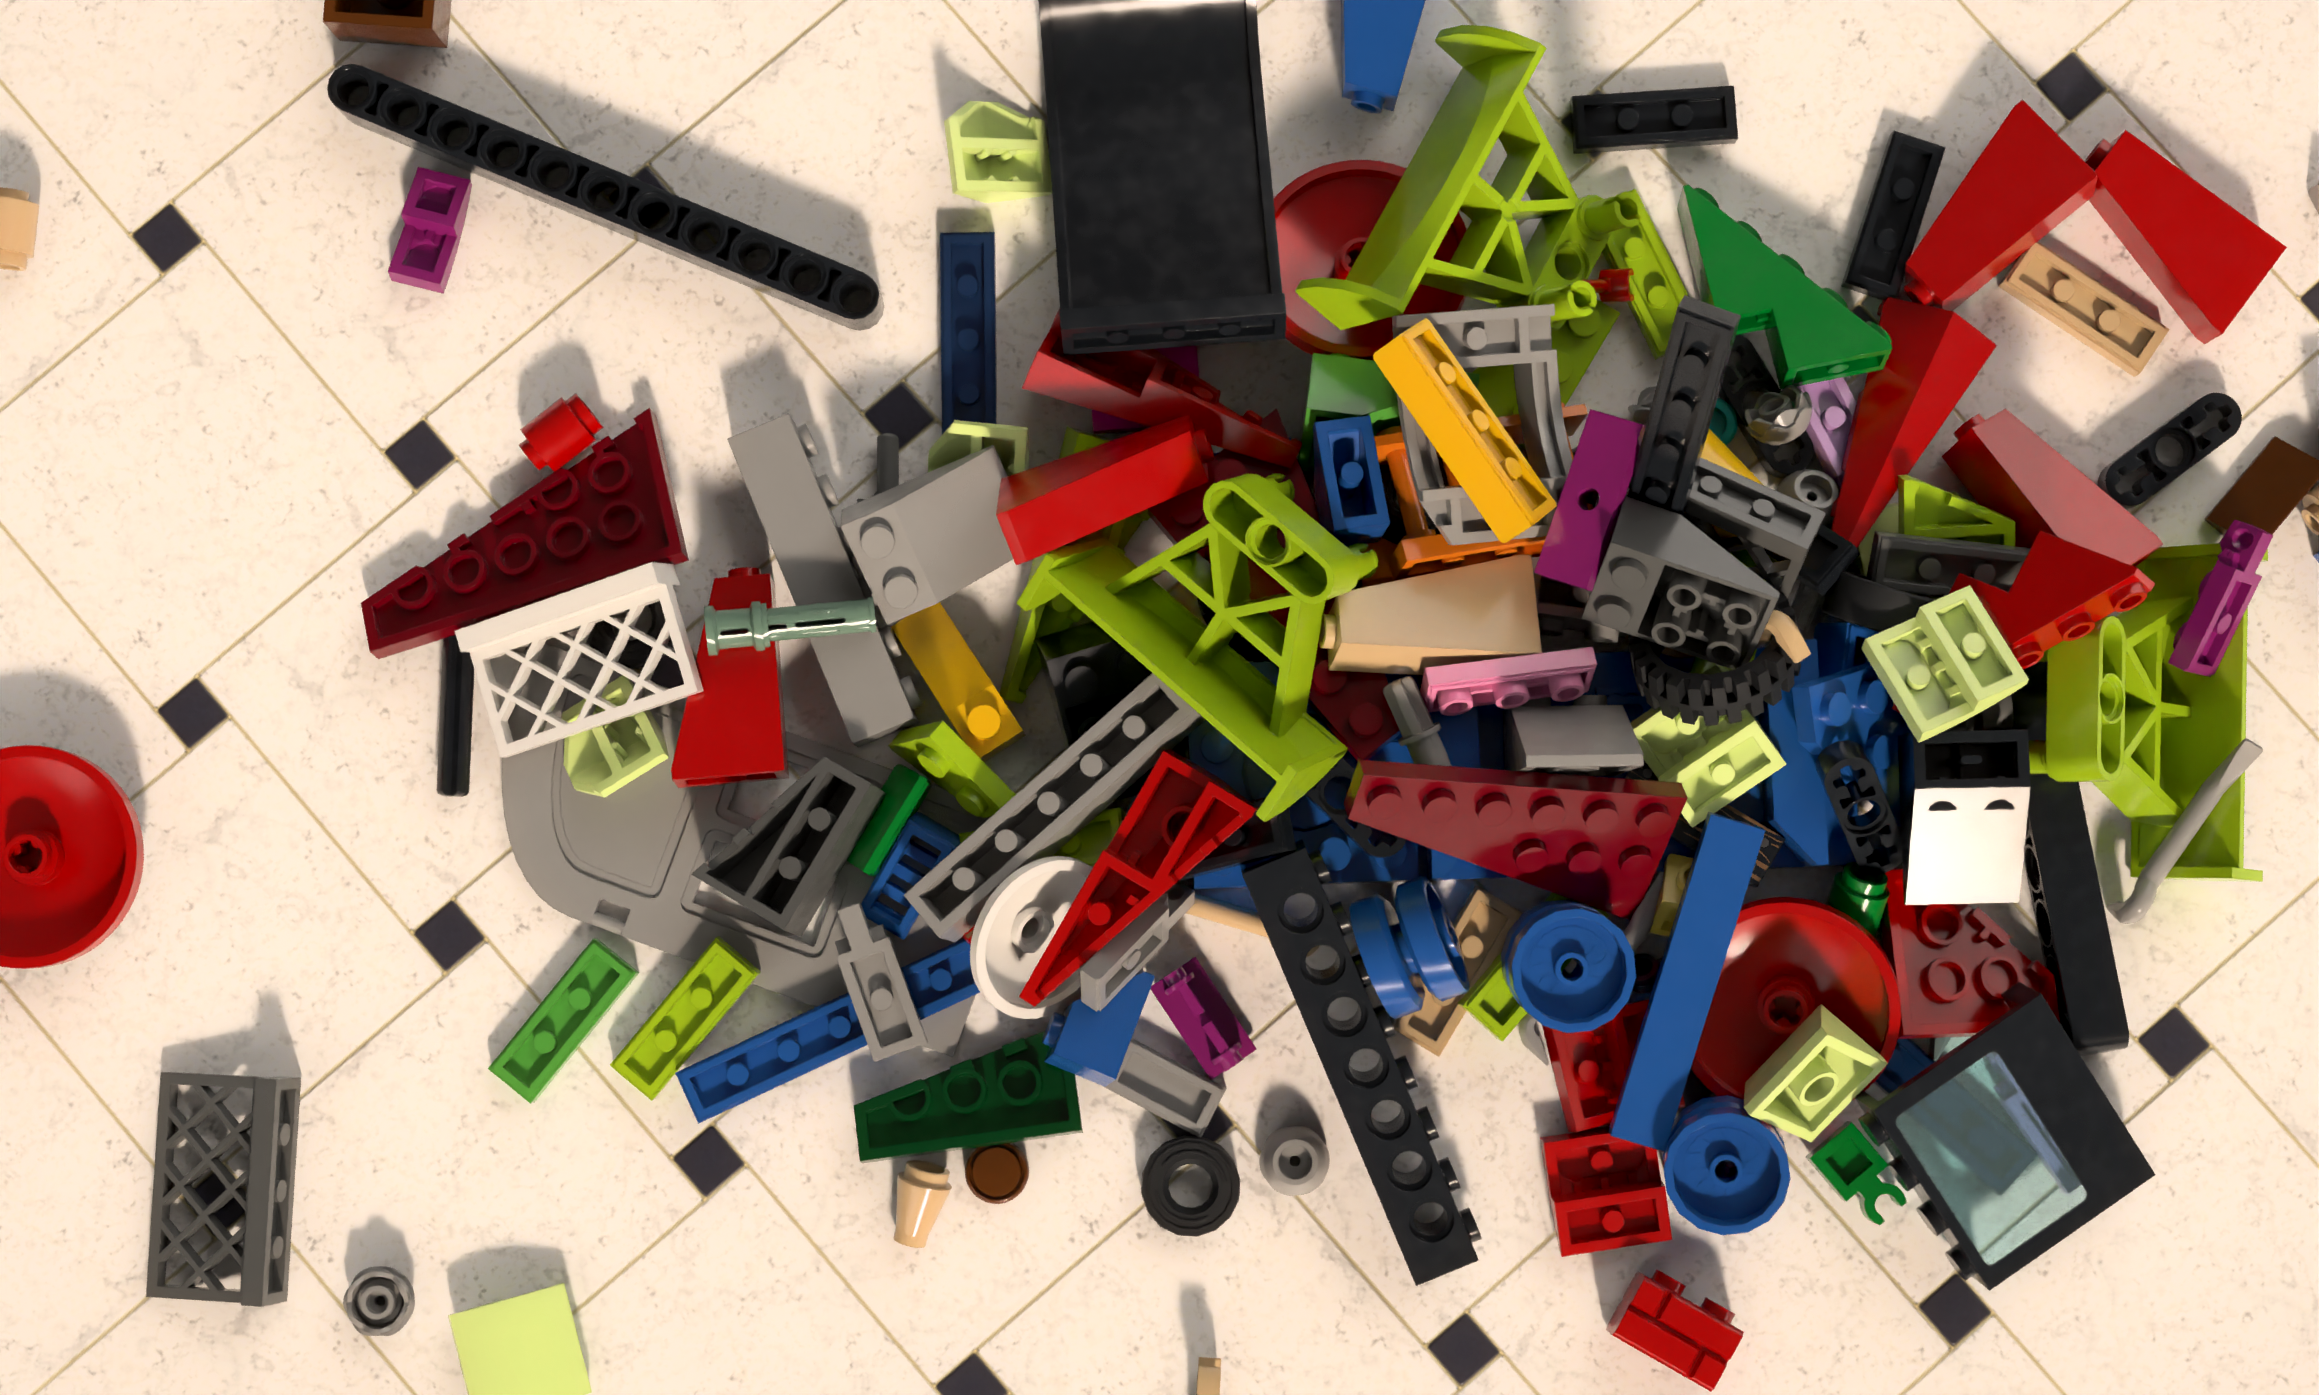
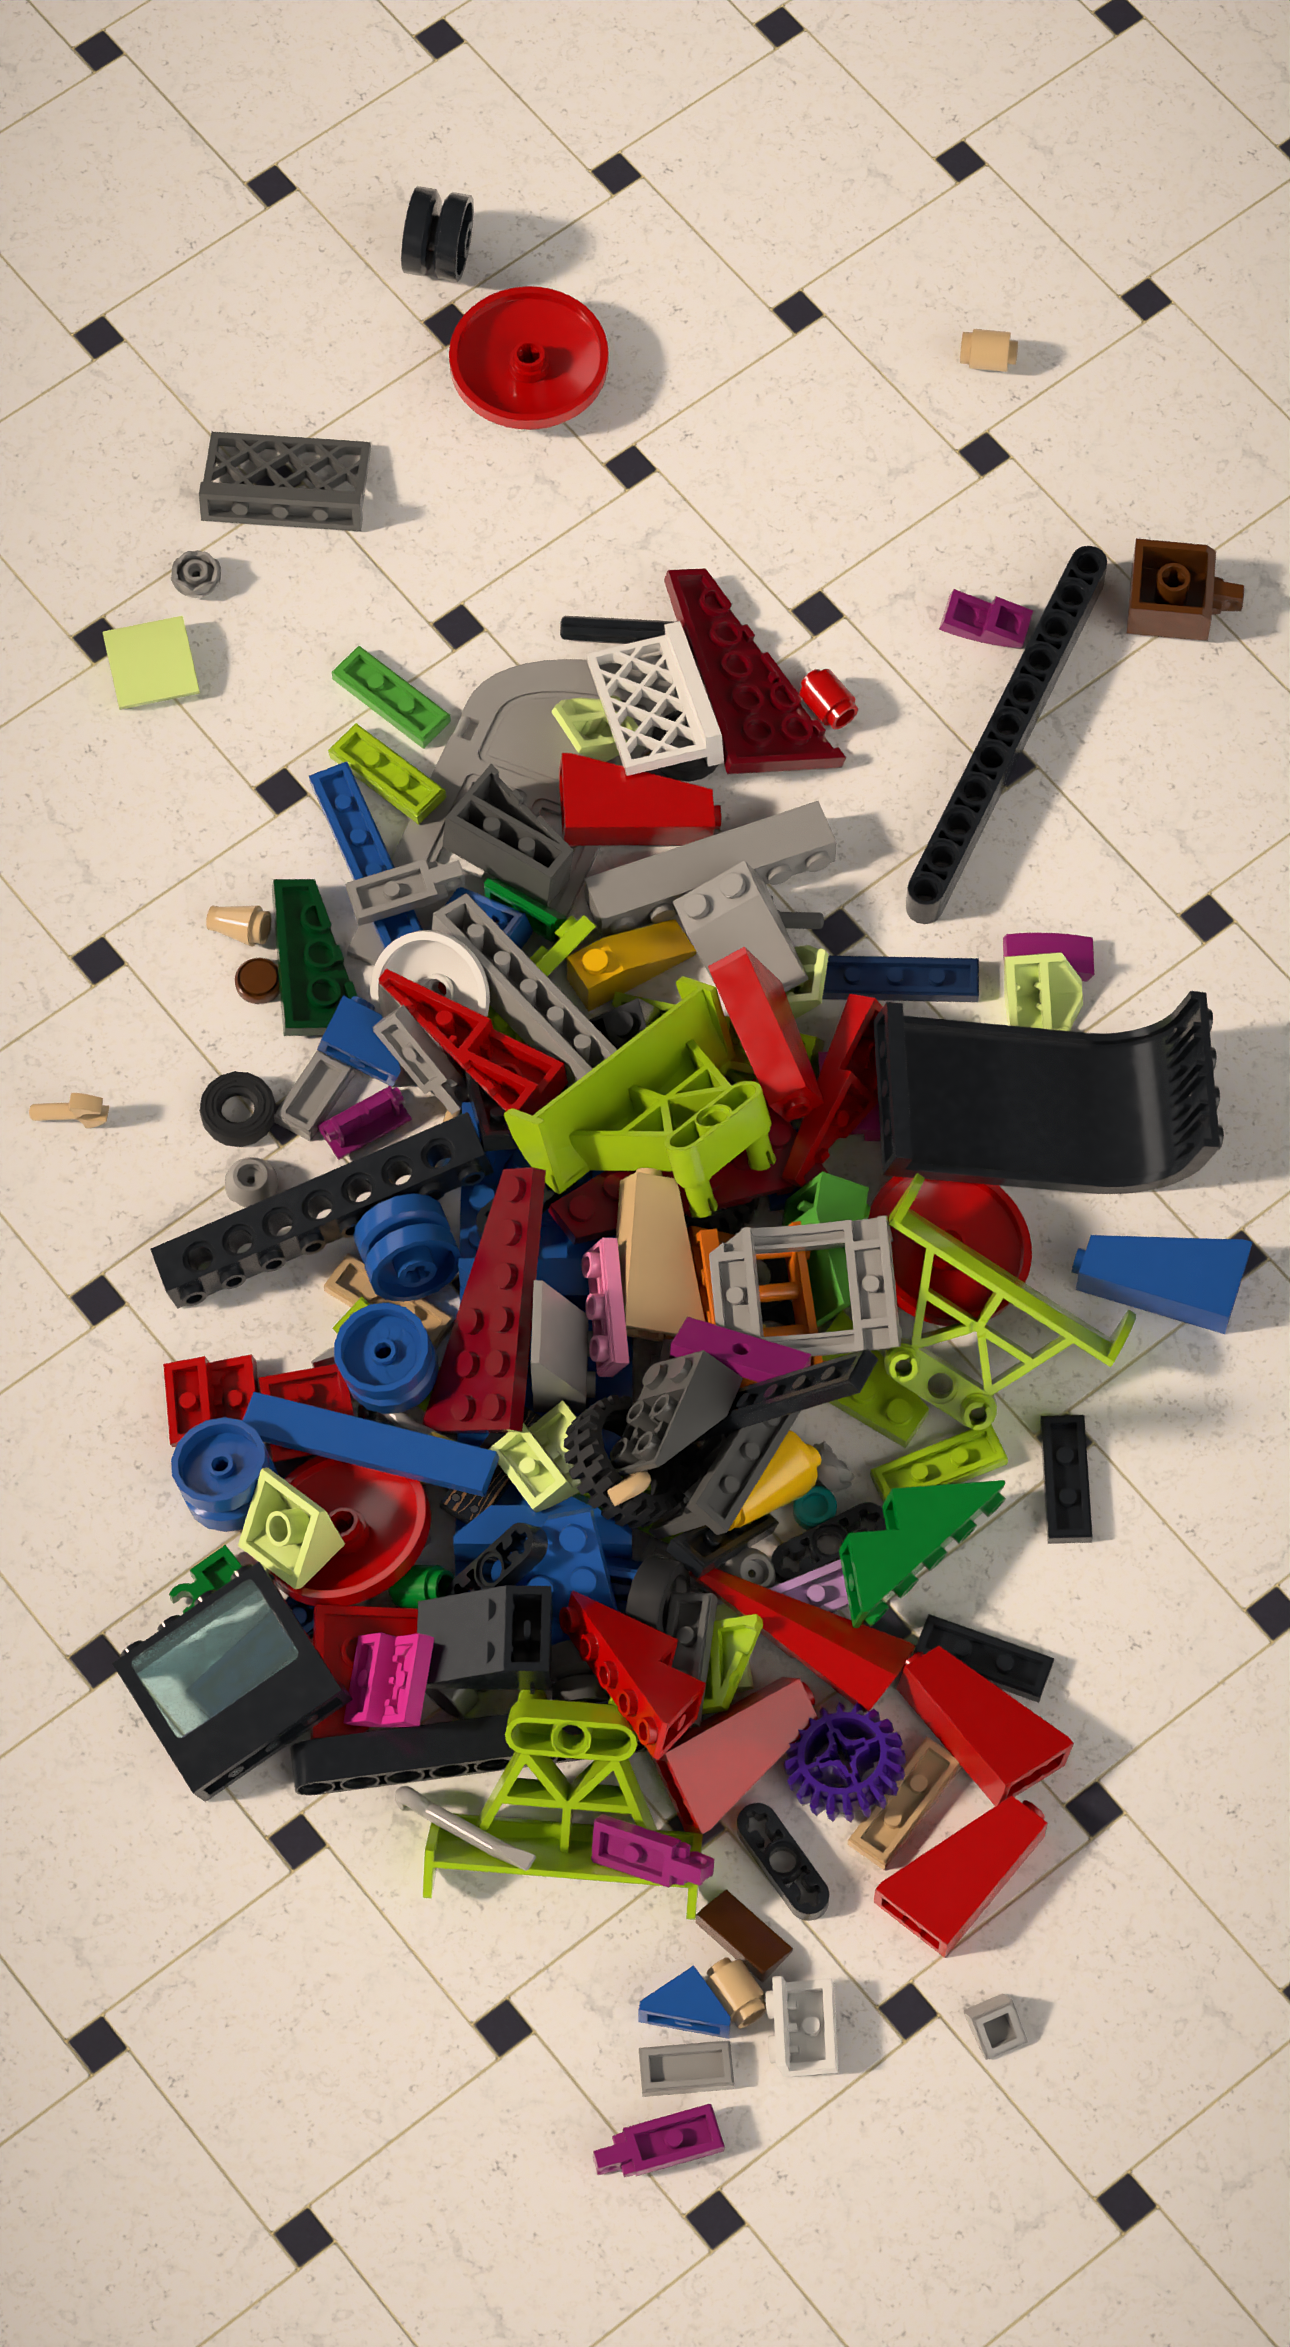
camera: 90 degrees right, 20 degrees down
(760, 625) = (673, 813): sand green pin -> none
(926, 142) = (1075, 948): none -> magenta slope
(1349, 481) = (764, 1201): blue slope -> none
(1415, 723) = (571, 1242): light grey axle -> none
(1464, 430) = (796, 1261): yellow slope -> none
(1613, 285) = (926, 1427): red hand -> none
(1675, 1330) = (101, 1441): red brick -> none
(1779, 416) = (813, 1542): light grey plate -> none
(1944, 664) = (603, 1609): yellowish green slope -> none
(2006, 935) = (389, 1680): none -> dark pink slope
(2042, 351) = (876, 1744): none -> dark purple gear

